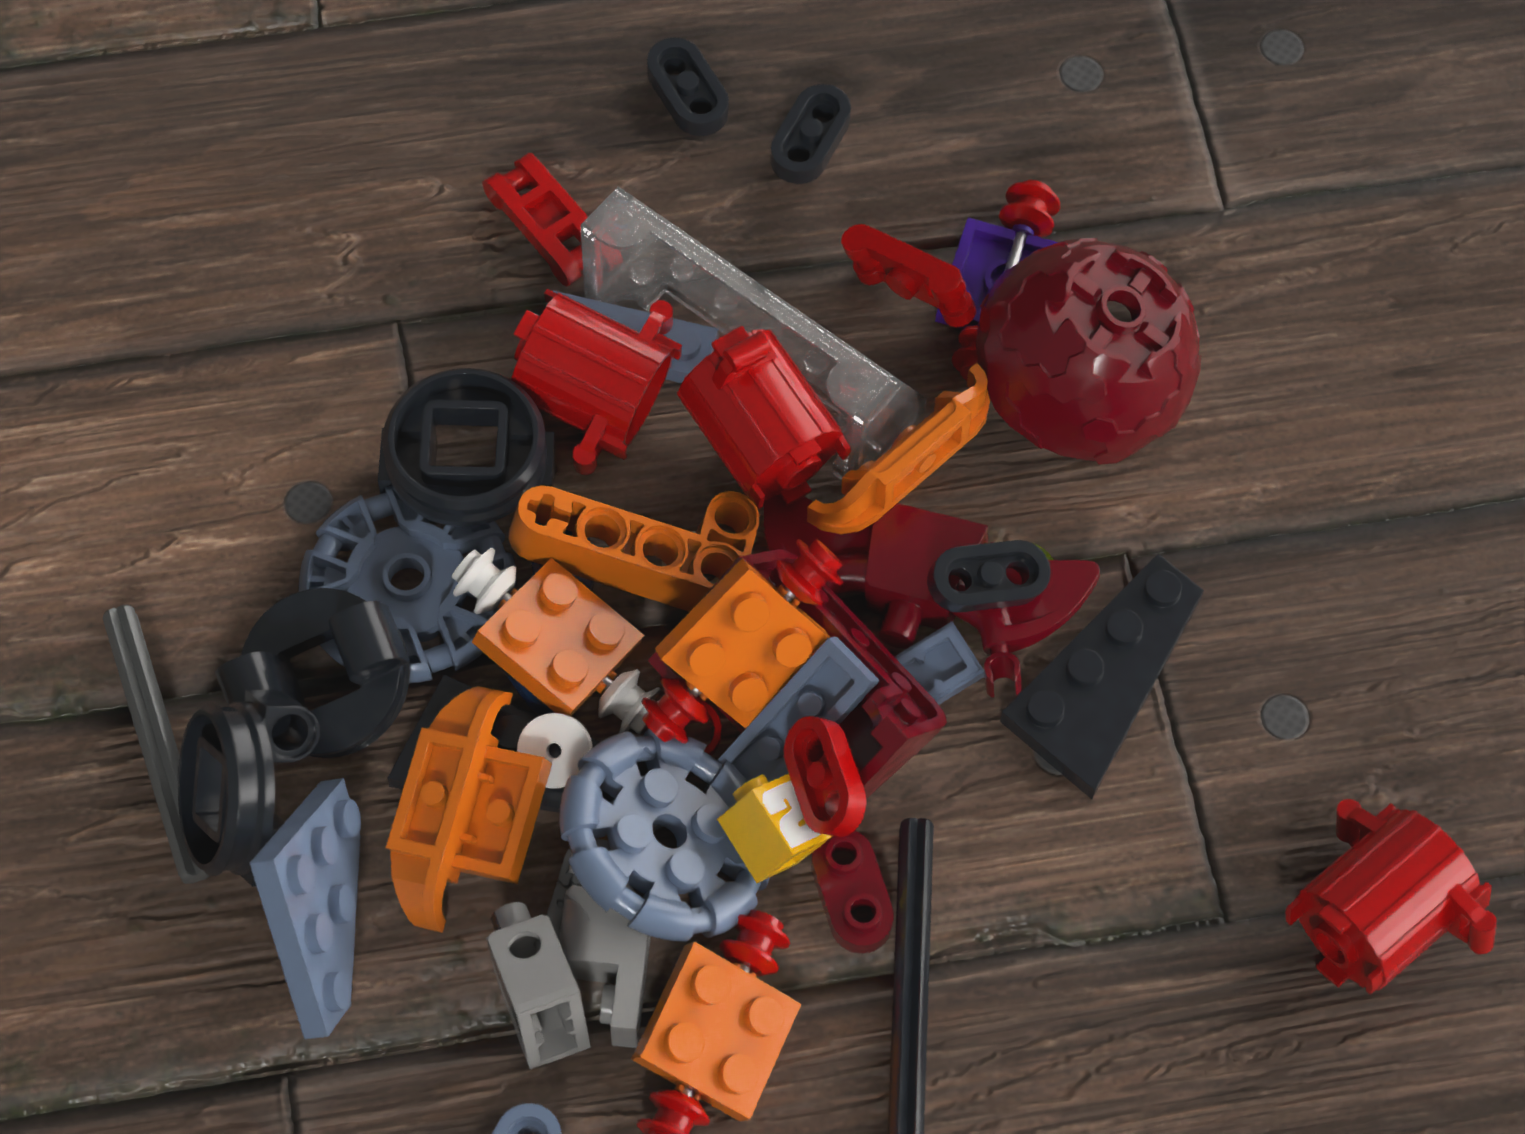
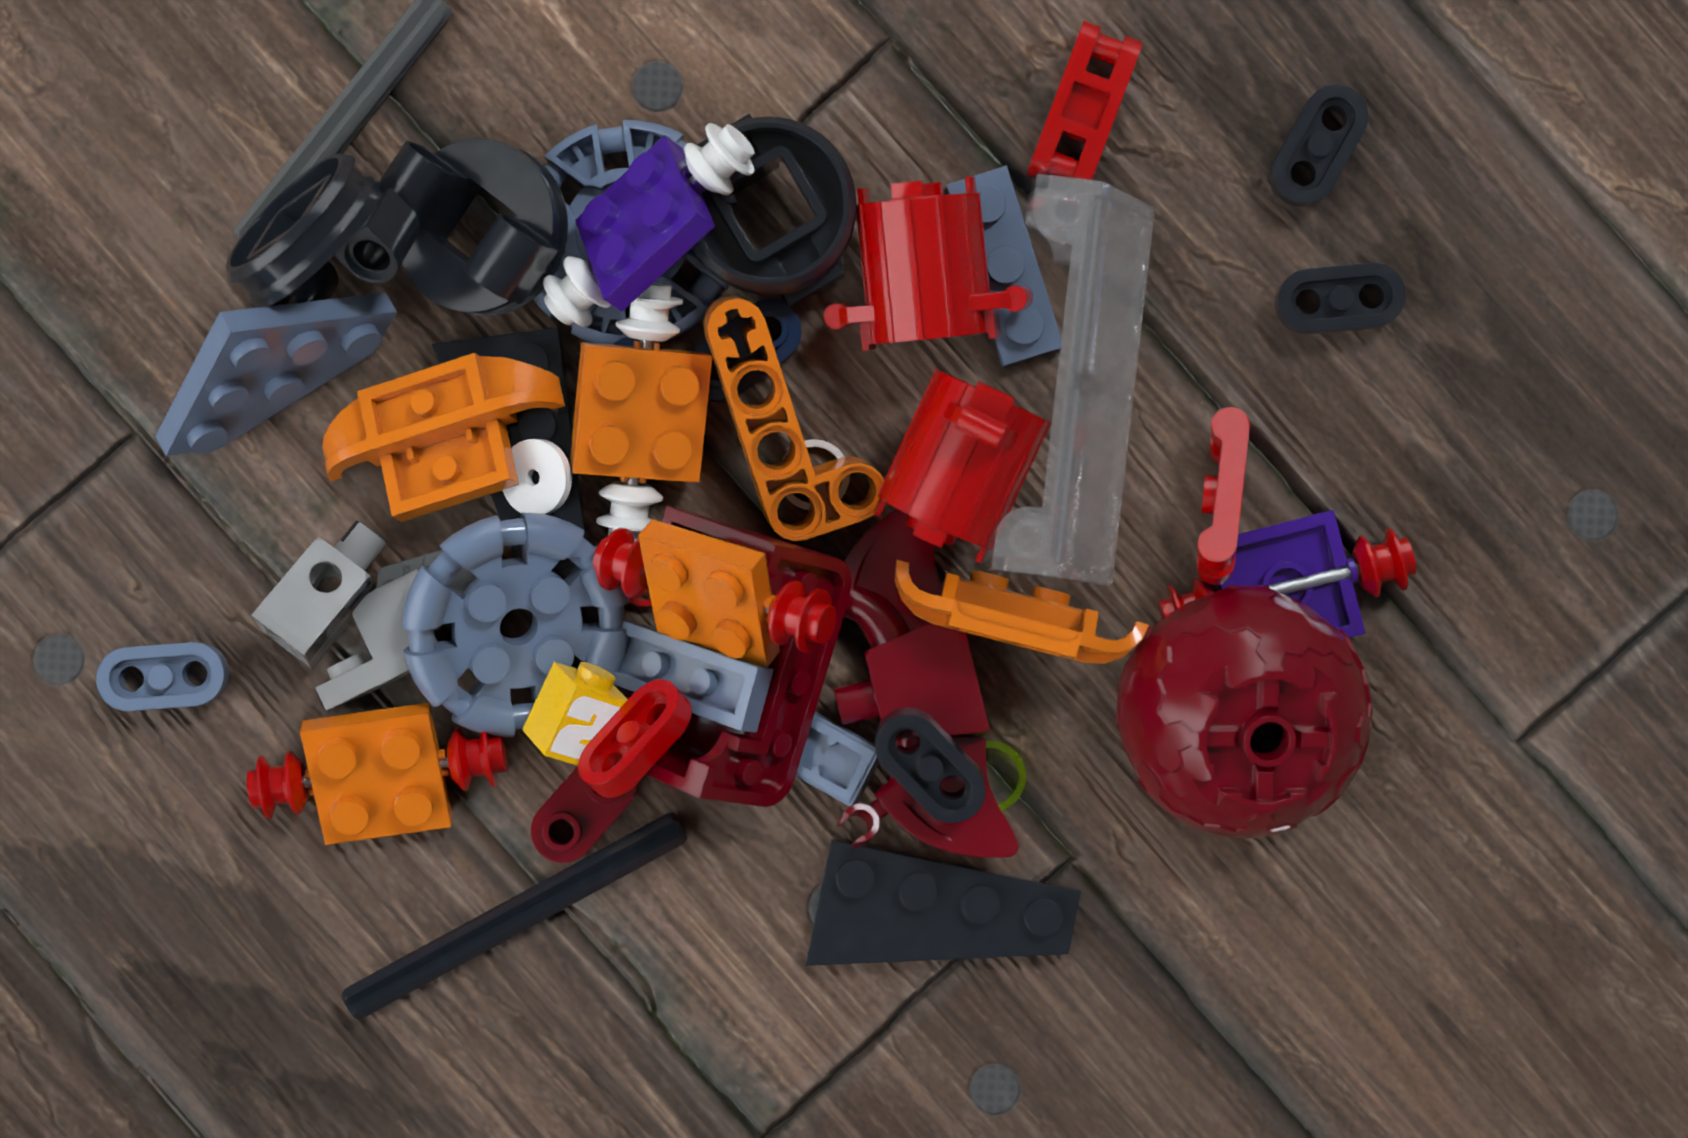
camera: 60 degrees right, 25 degrees up
(415, 527) = (646, 222): none -> dark purple plate

